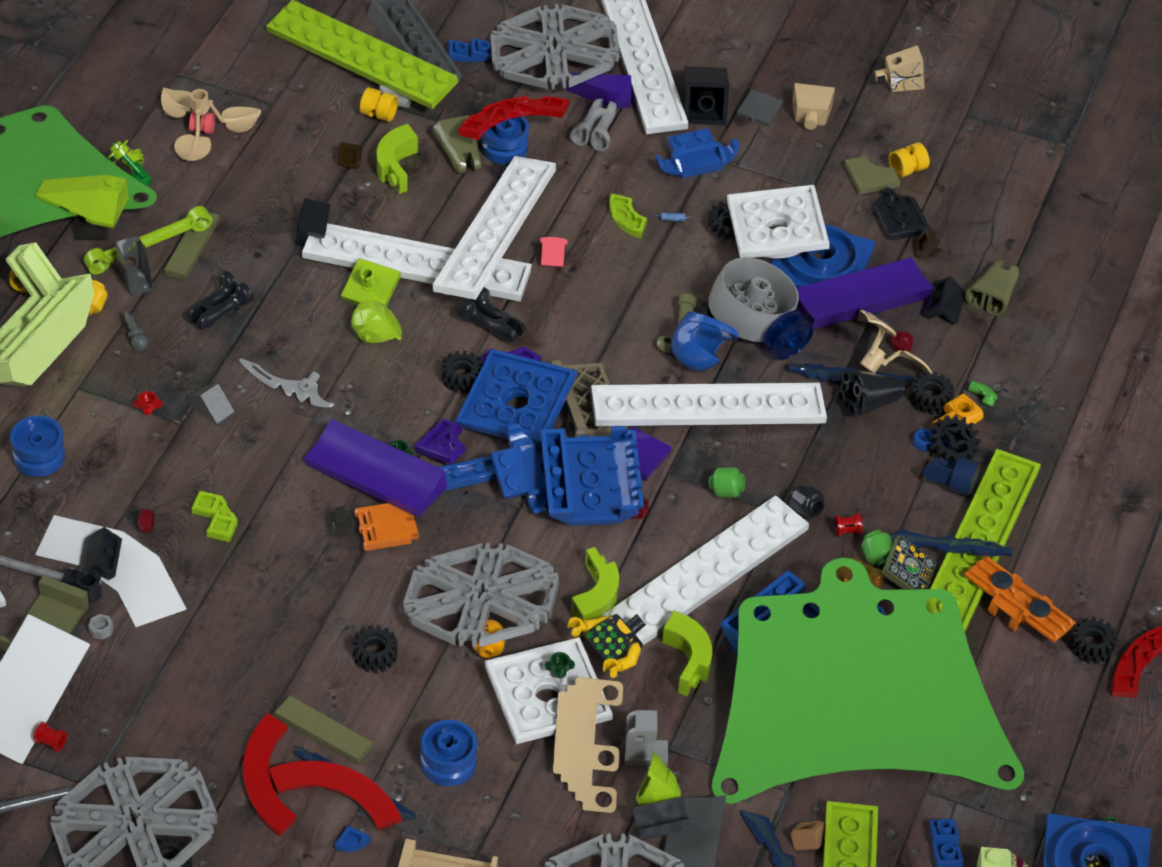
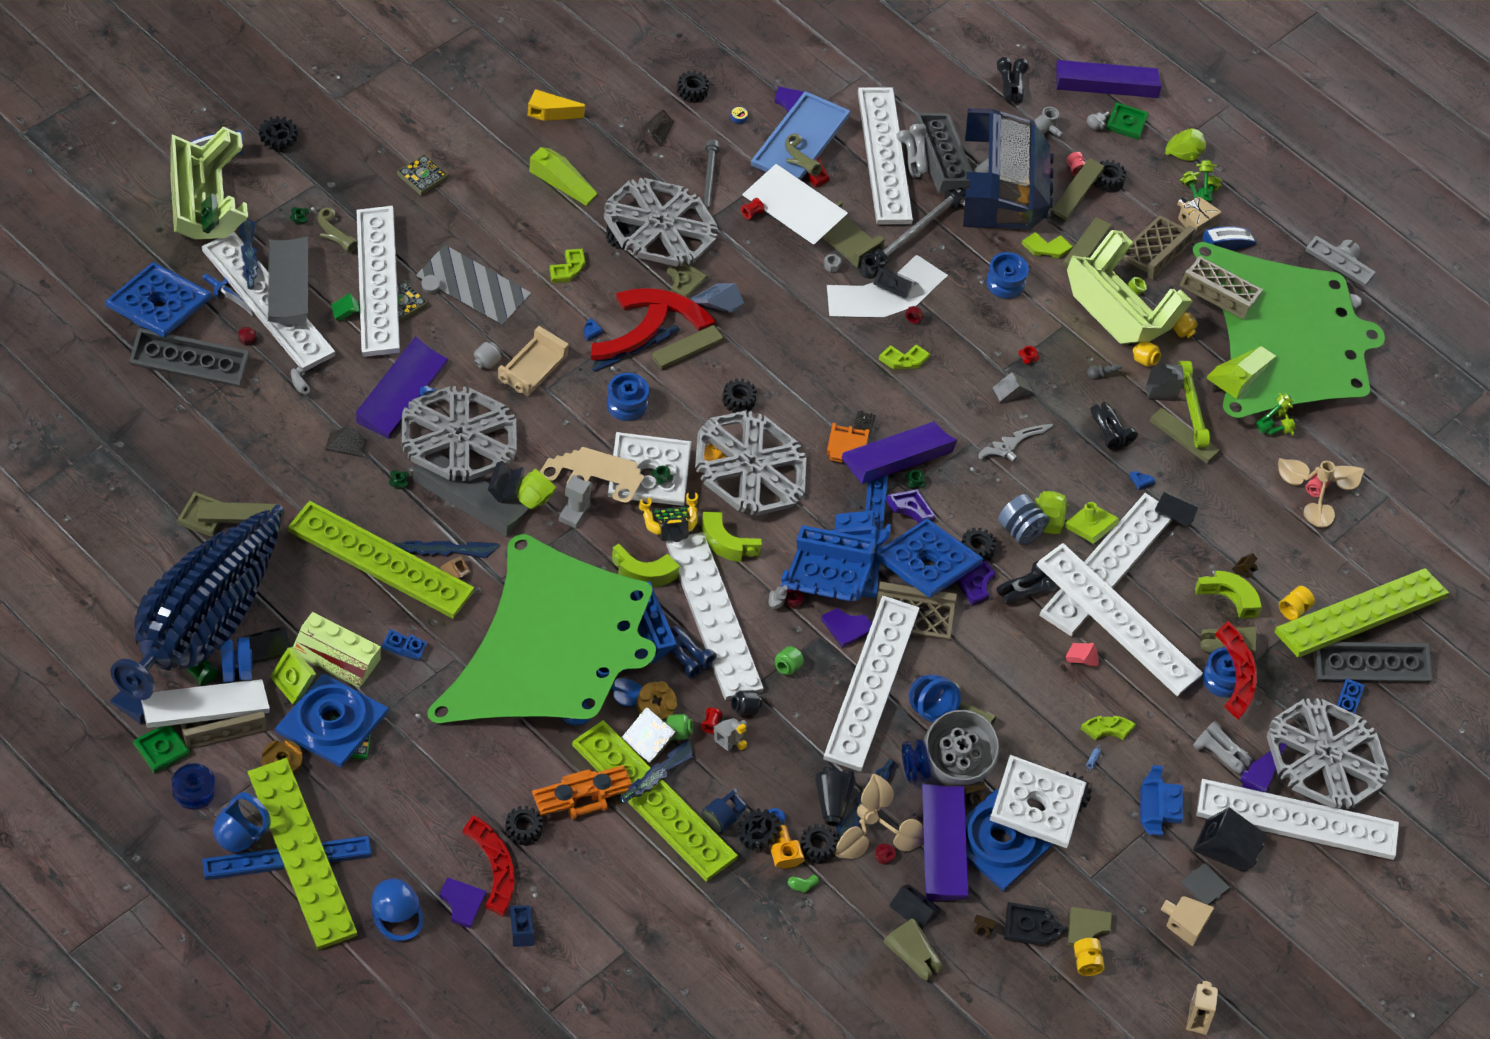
camera: 110 degrees right, 5 degrees up
(215, 767) = (686, 279): none -> olive tile
(229, 720) = (720, 297): none -> sand blue slope
(278, 265) = (1142, 480): none -> blue tile
(412, 332) = (1023, 519): none -> sand blue wheel
(651, 516) = (777, 597): none -> light grey piece
(776, 551) = (704, 658): none -> dark blue piece
(855, 500) = (729, 733): none -> light grey piece

